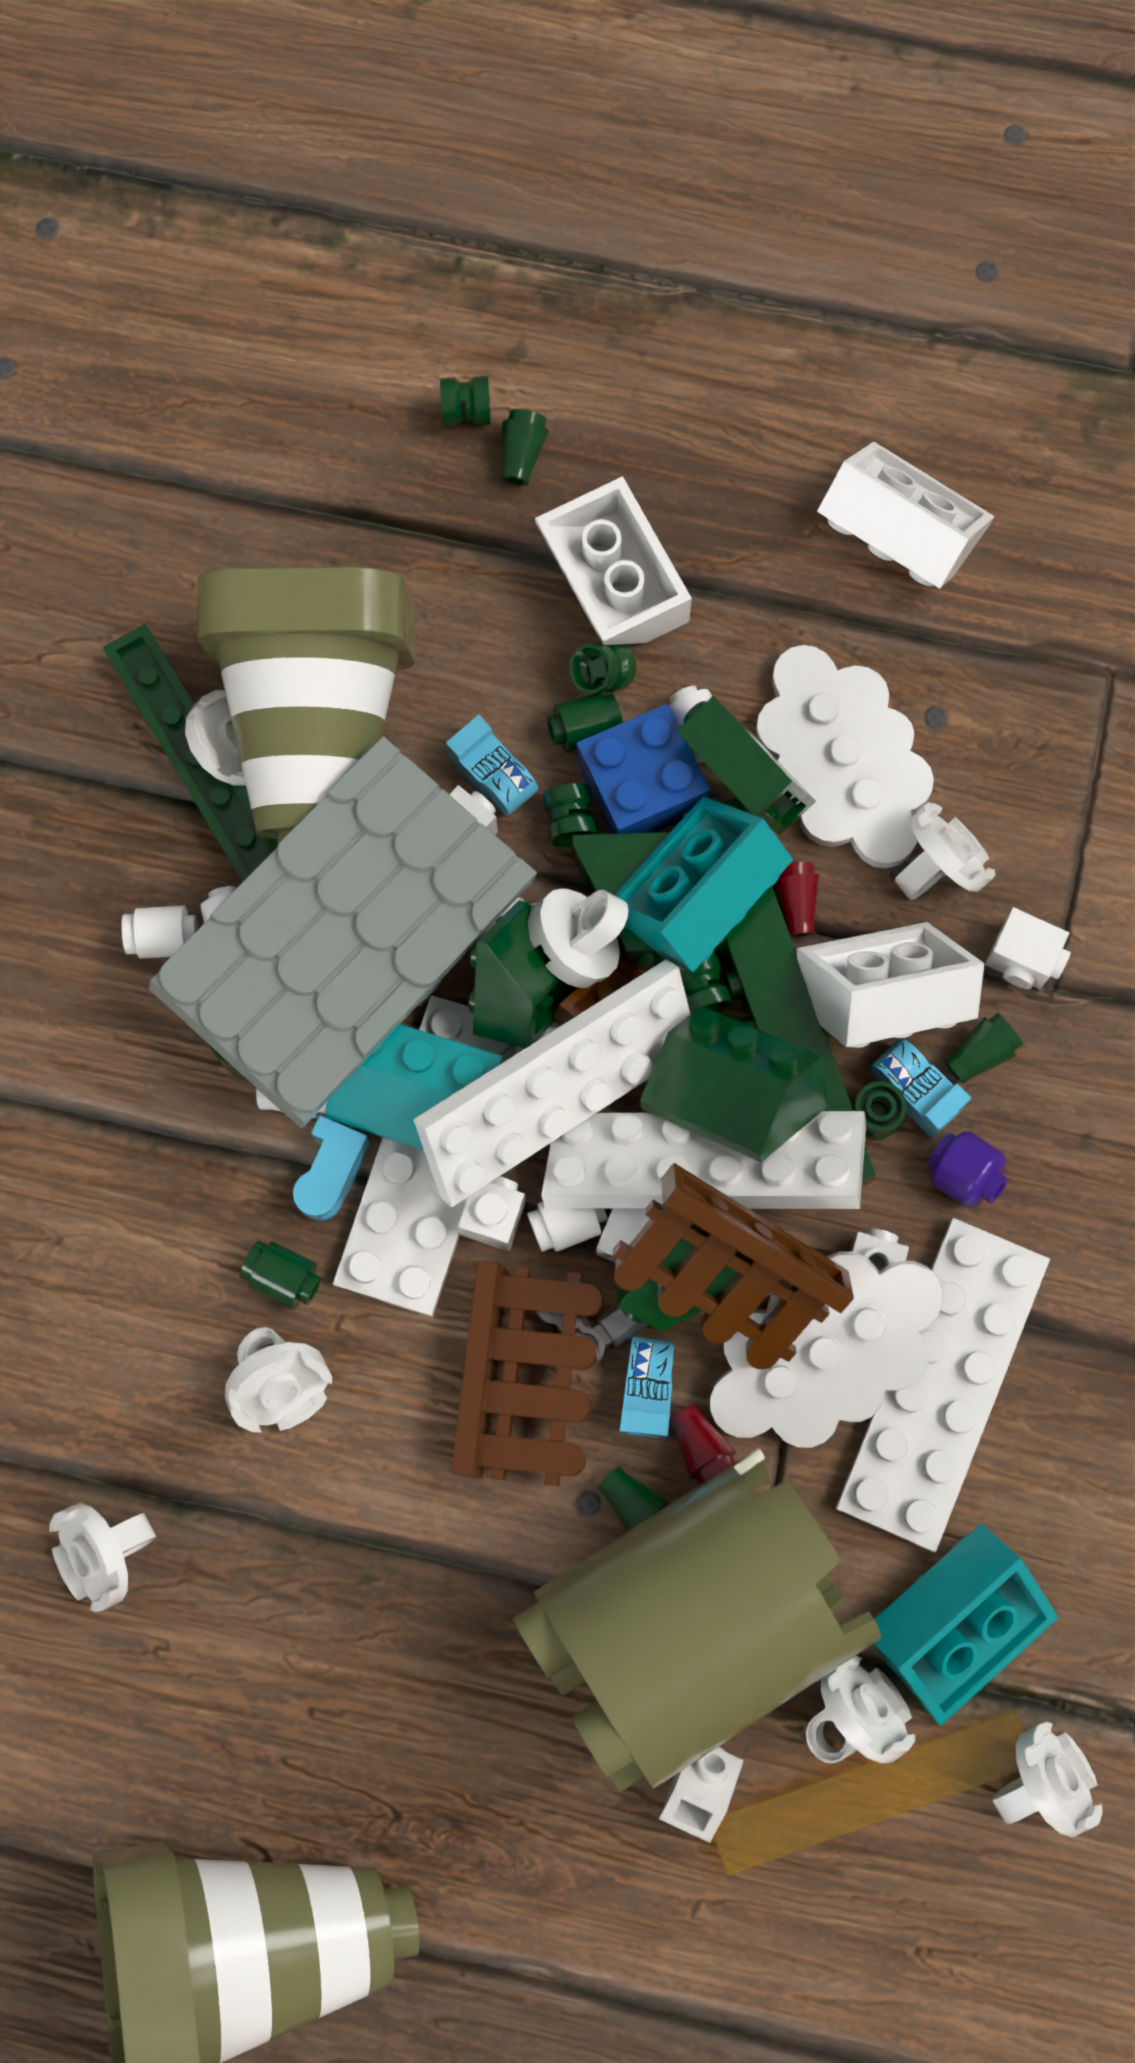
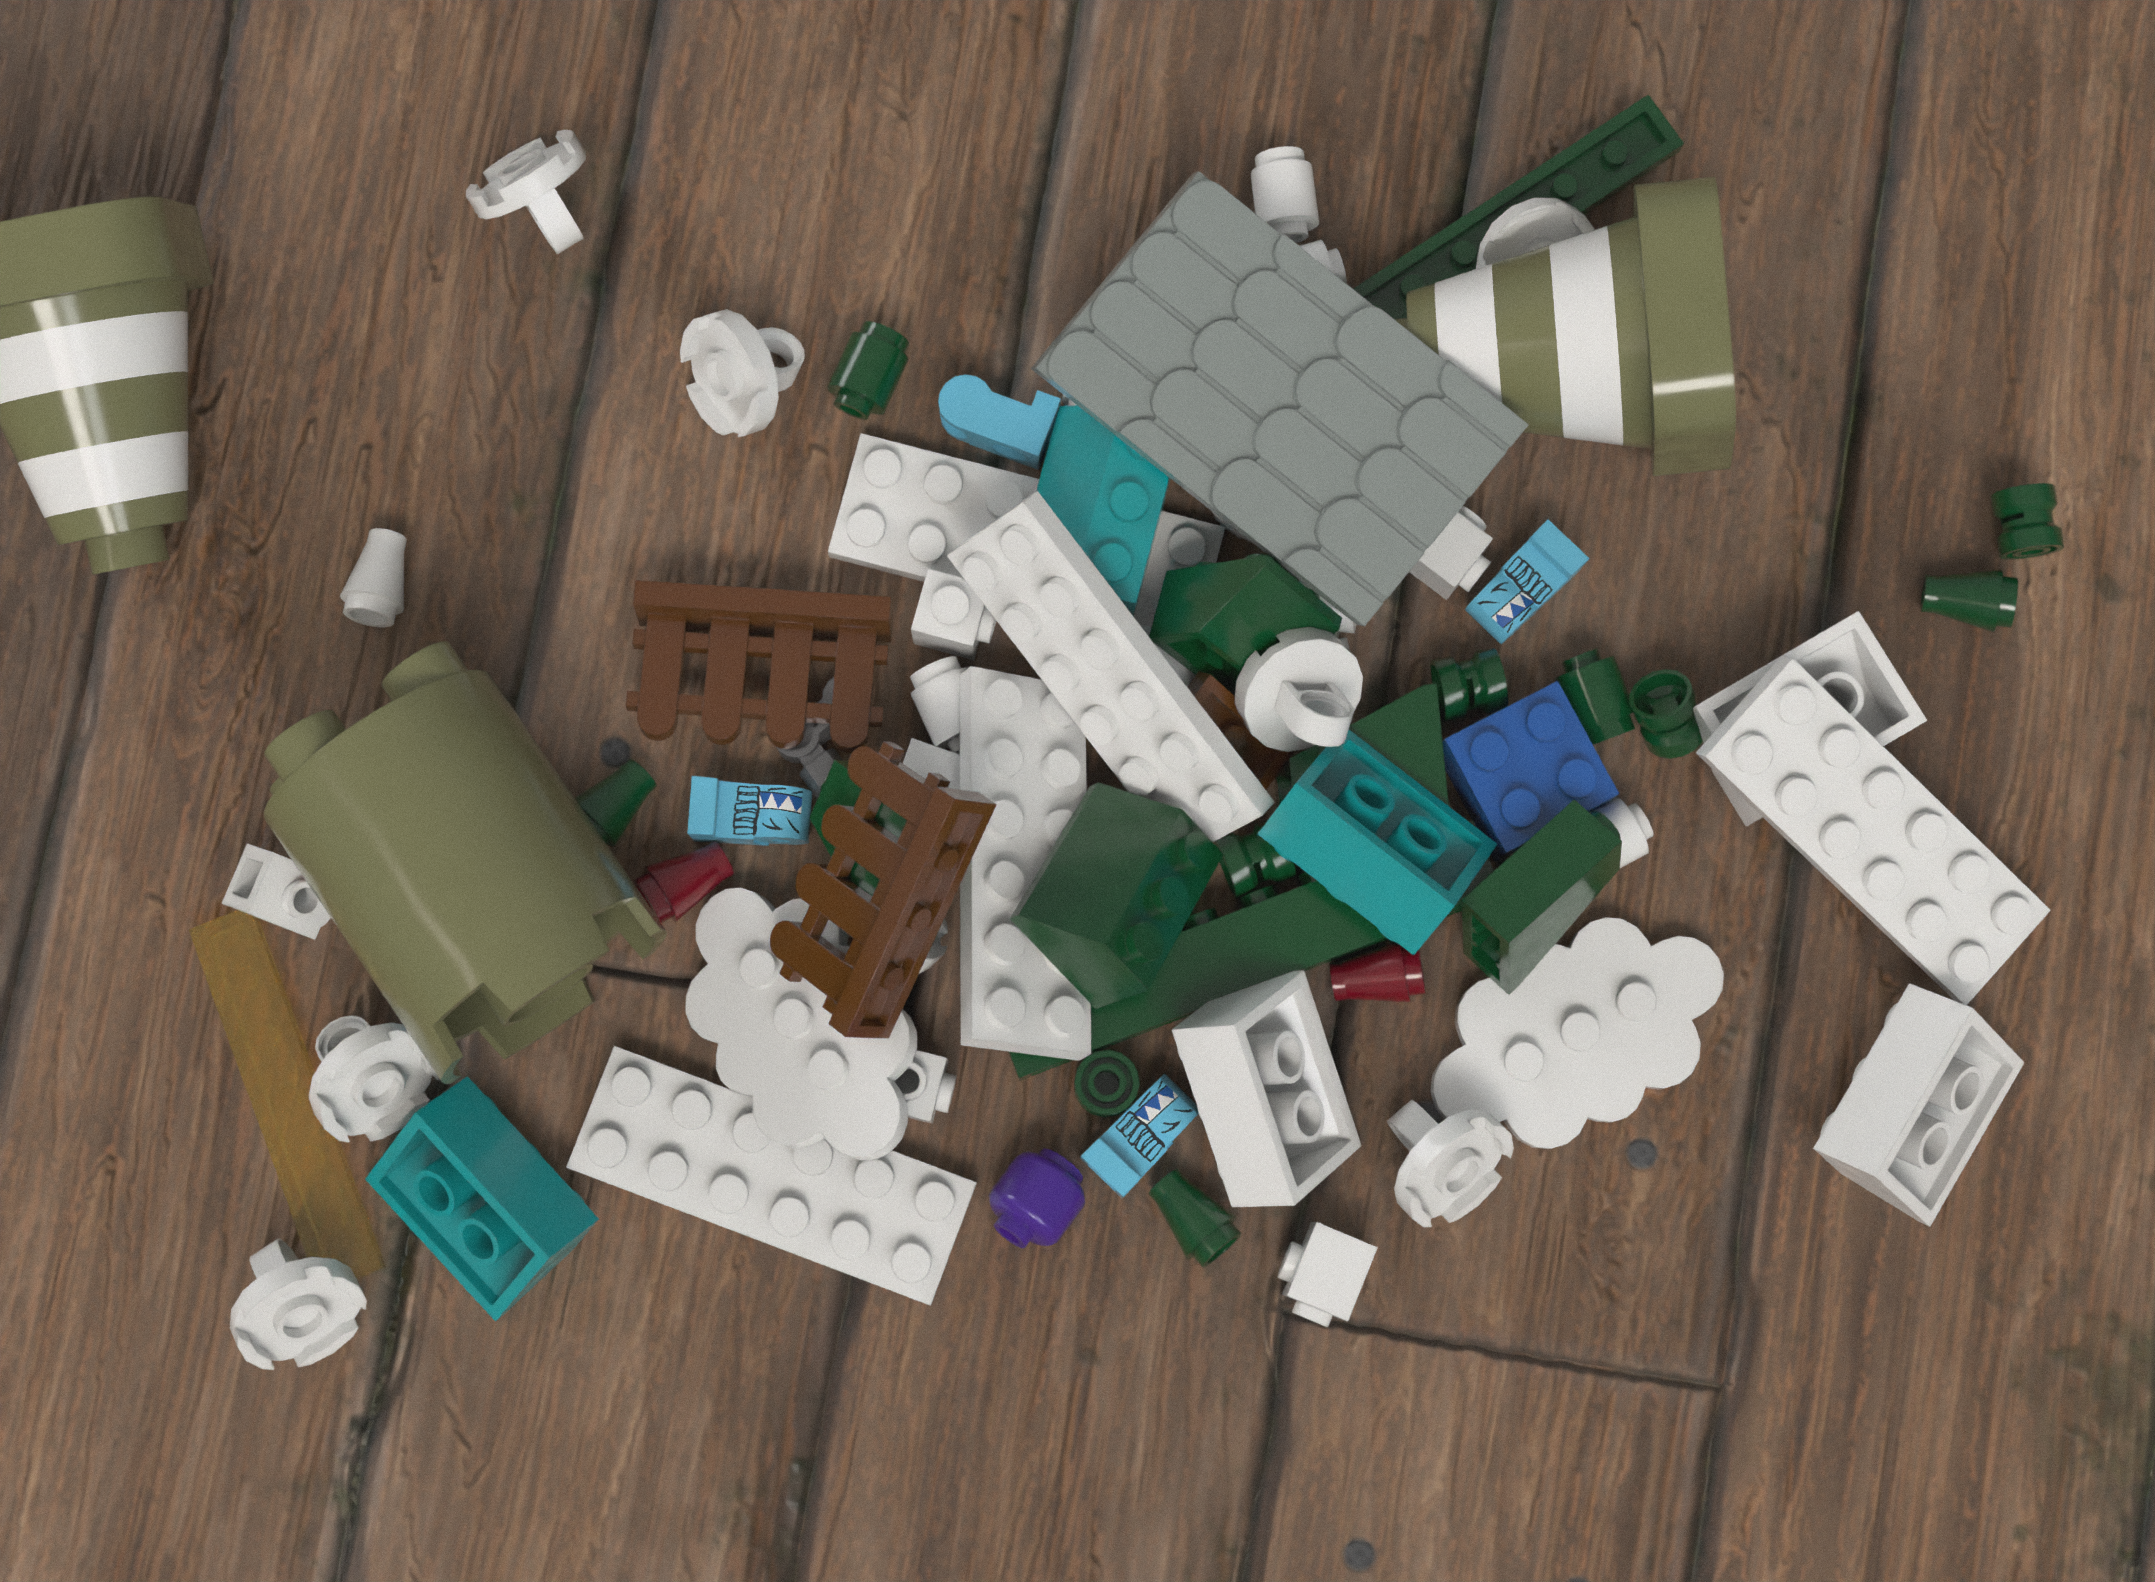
camera: 80 degrees right, 5 degrees up
(434, 1702) = (377, 581): none -> white cone
(702, 524) = (1873, 830): none -> white plate

